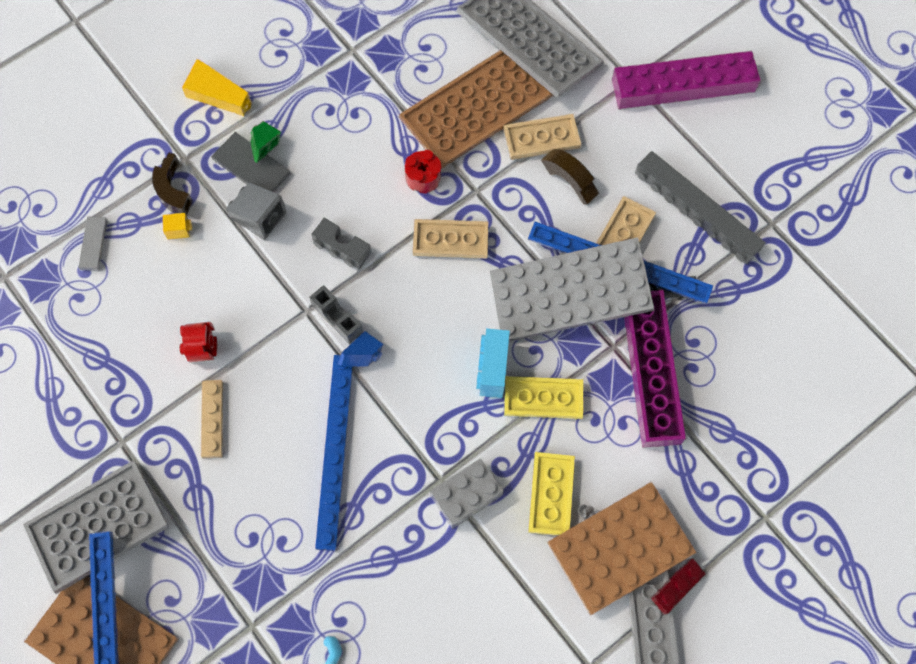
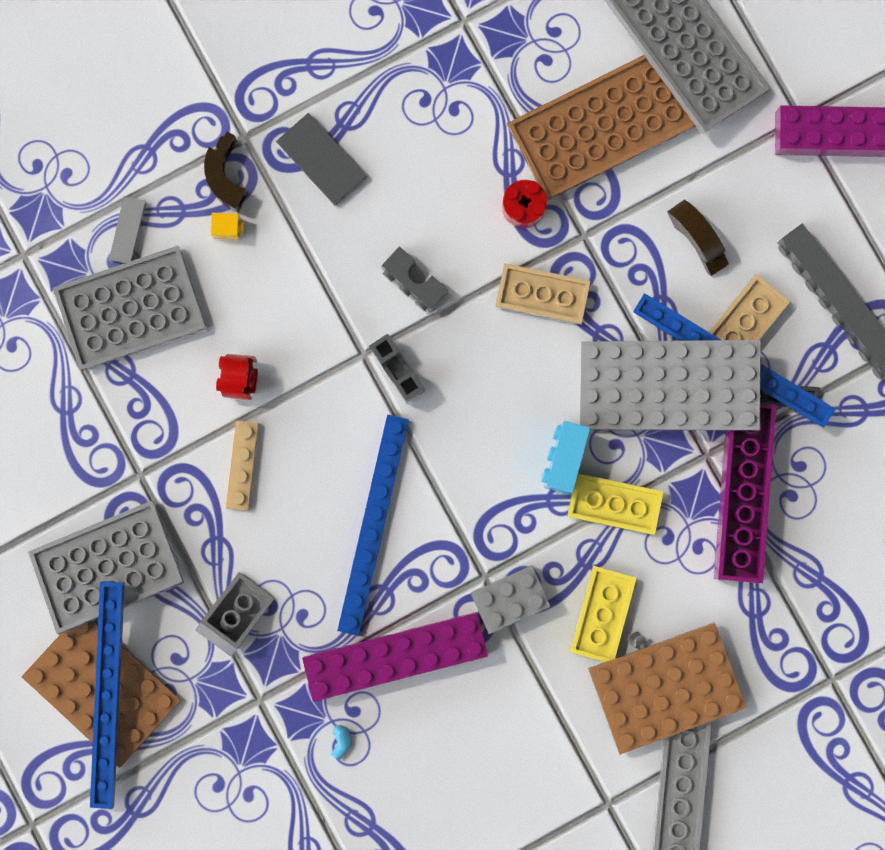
camera: 10 degrees right, 15 degrees up
(99, 304) = (129, 308): none -> light grey plate
(214, 89) = (290, 52): yellow slope -> none
(218, 550) = (234, 614): none -> light grey slope
(257, 210) = (321, 221): slope -> none
(263, 140) = (340, 131): green slope -> none
(361, 352) = (420, 418): blue slope -> none
(370, 562) = (394, 656): none -> magenta brick
(541, 136) = (674, 179): tan plate -> none
(678, 586) = (719, 738): dark red plate -> none

